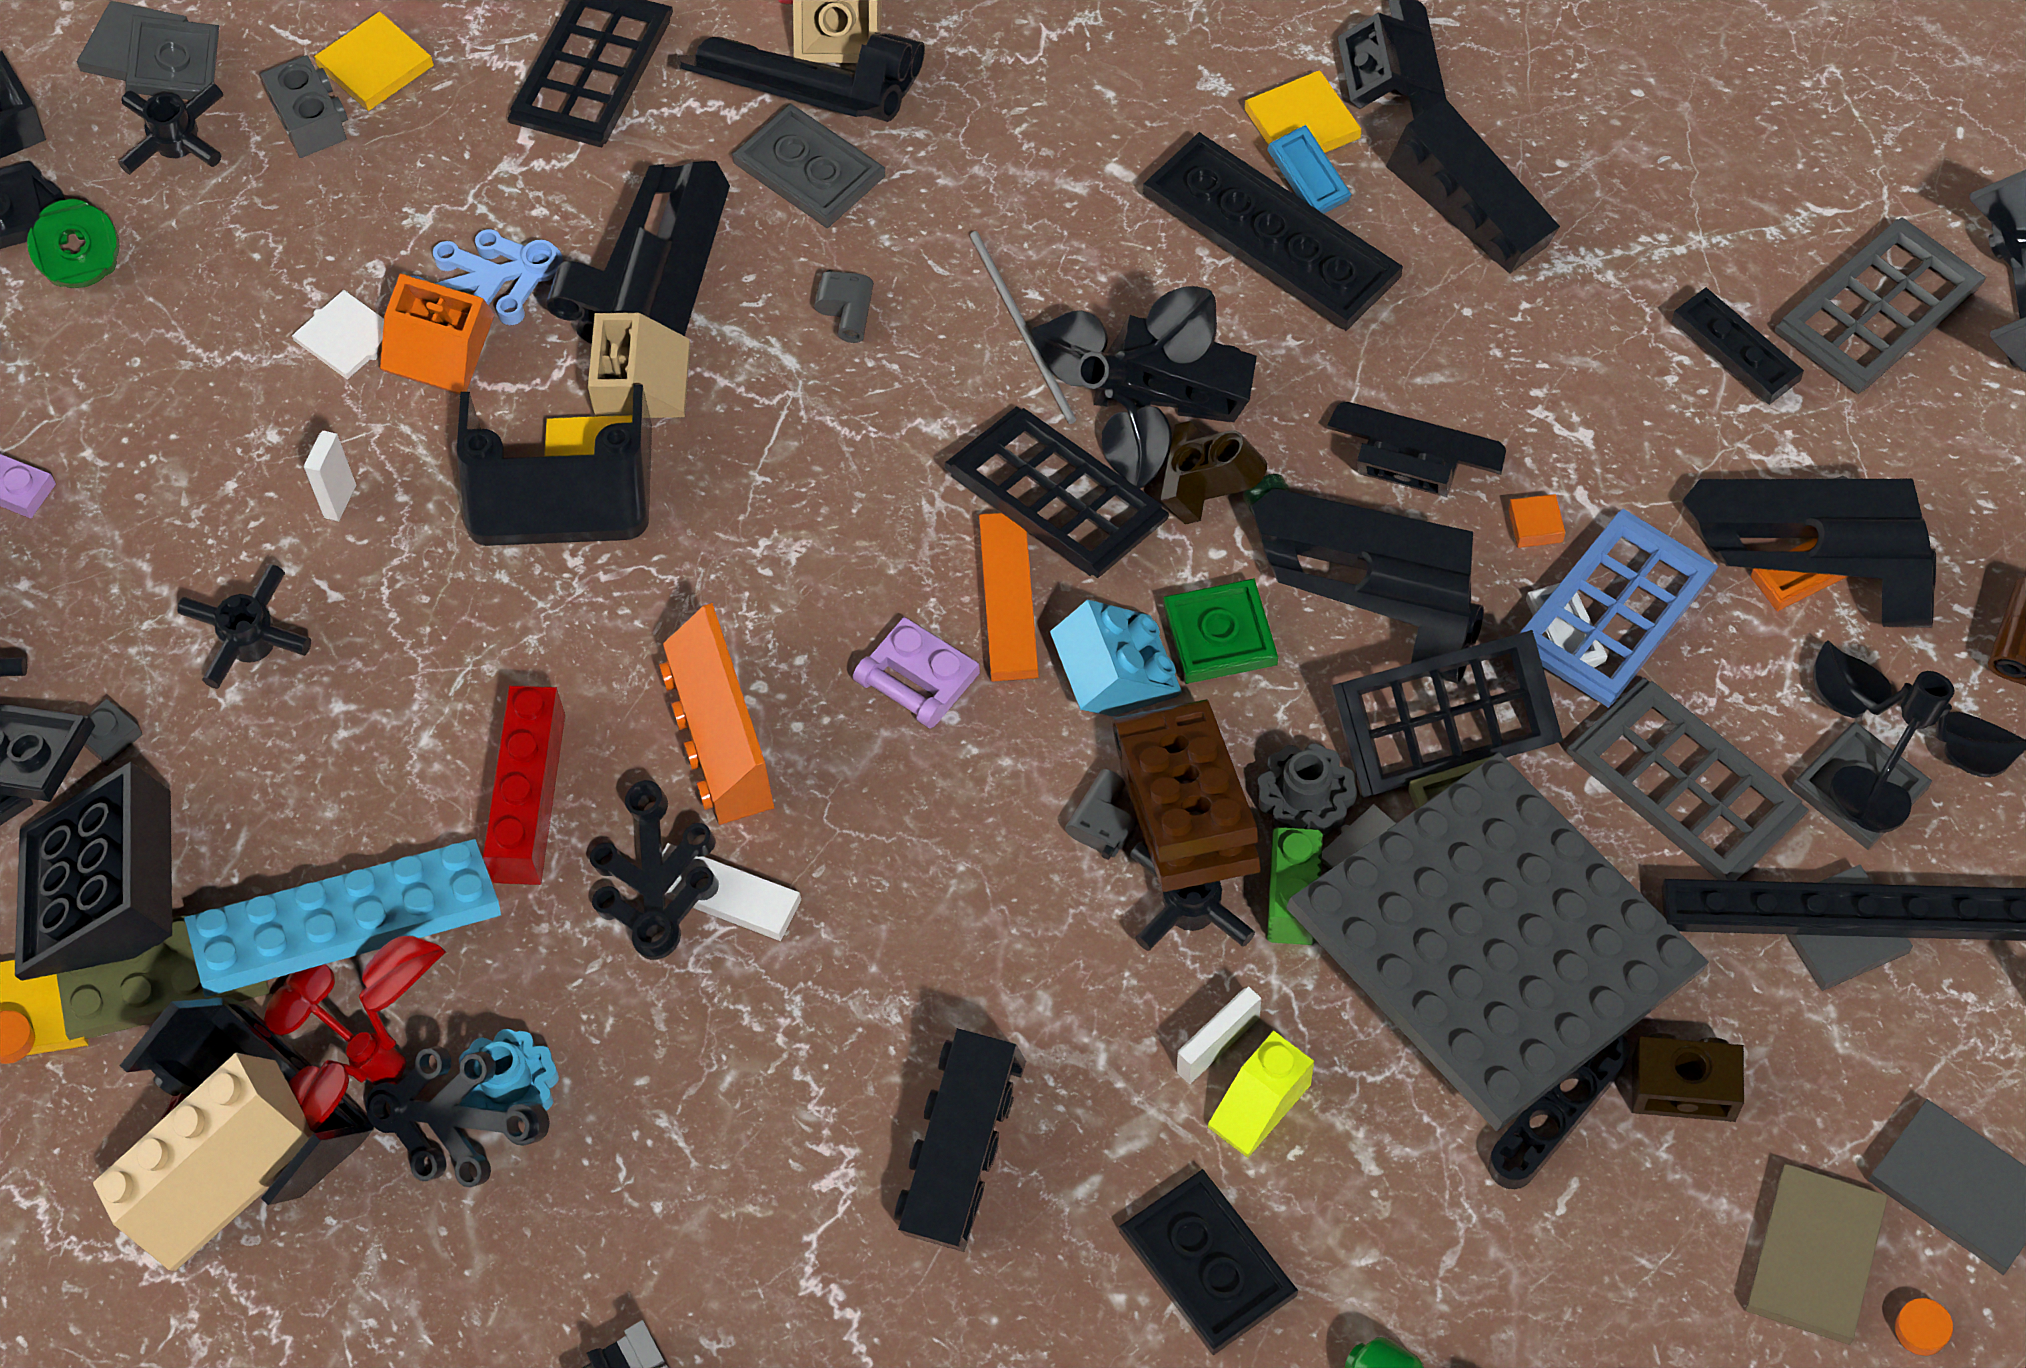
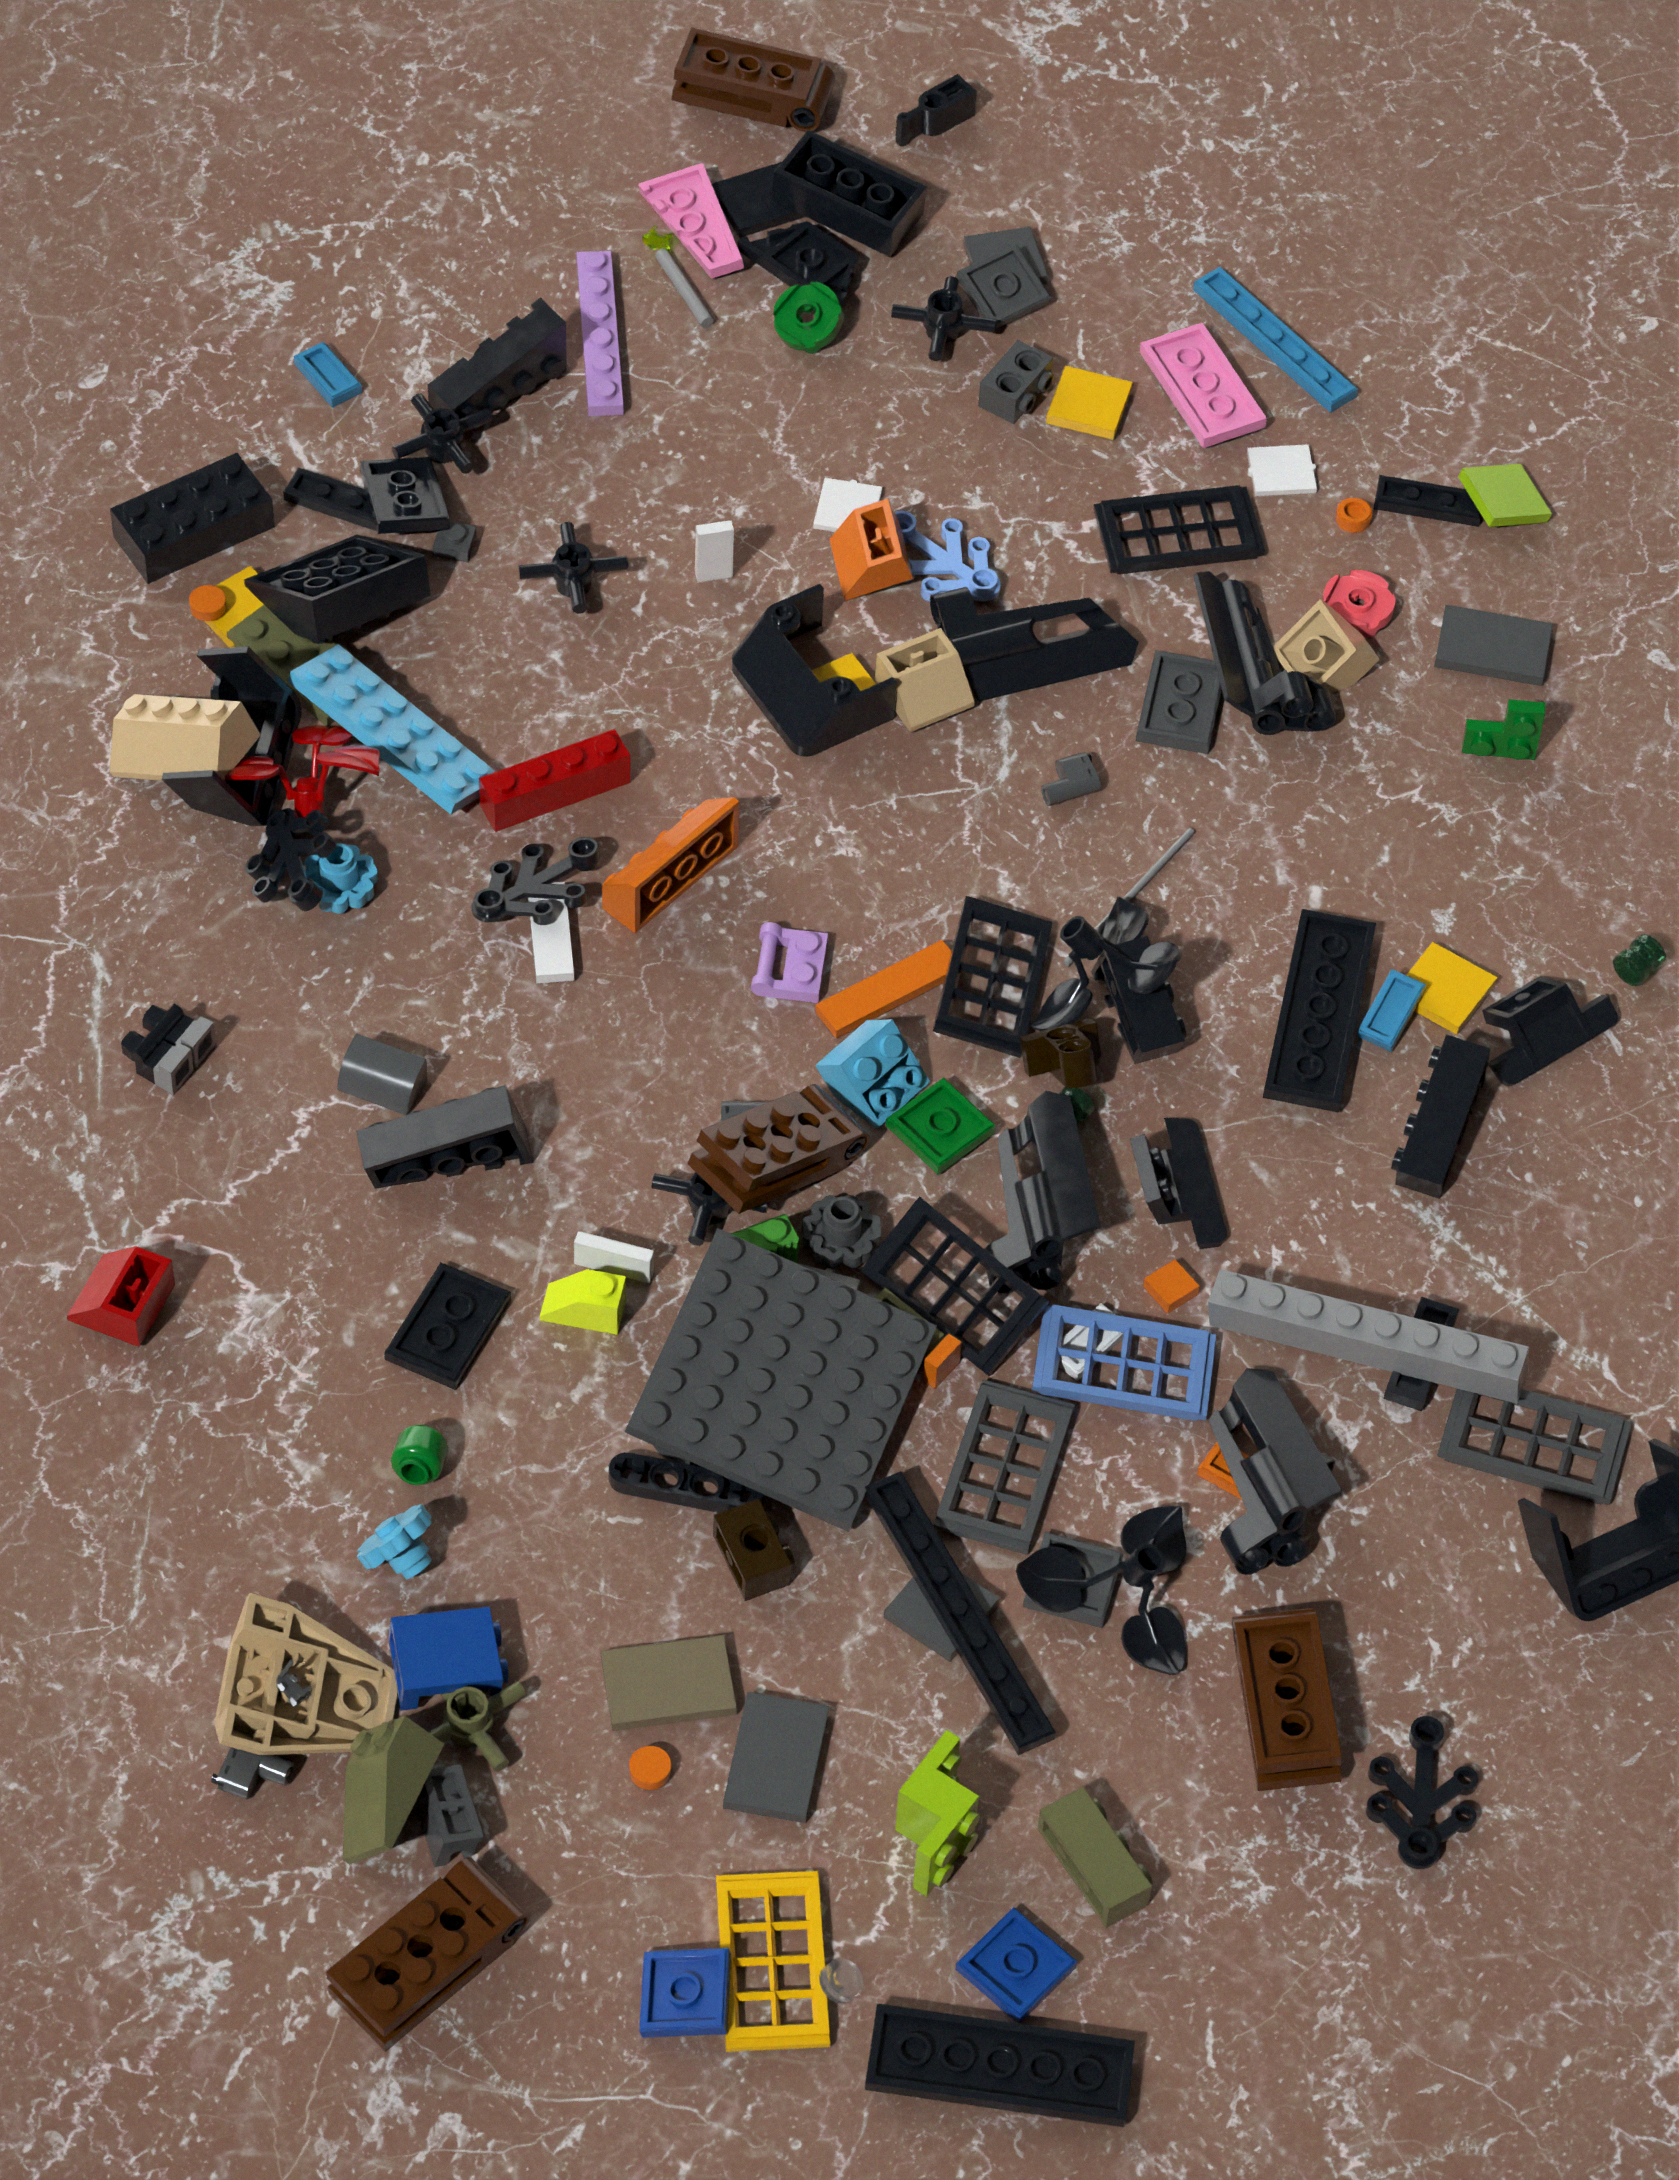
camera: 55 degrees right, 5 degrees down
(819, 1165) = (382, 1074): none -> dark grey brick
(1532, 766) = (942, 1361): none -> orange tile
(1711, 374) = (1368, 1336): none -> light grey brick

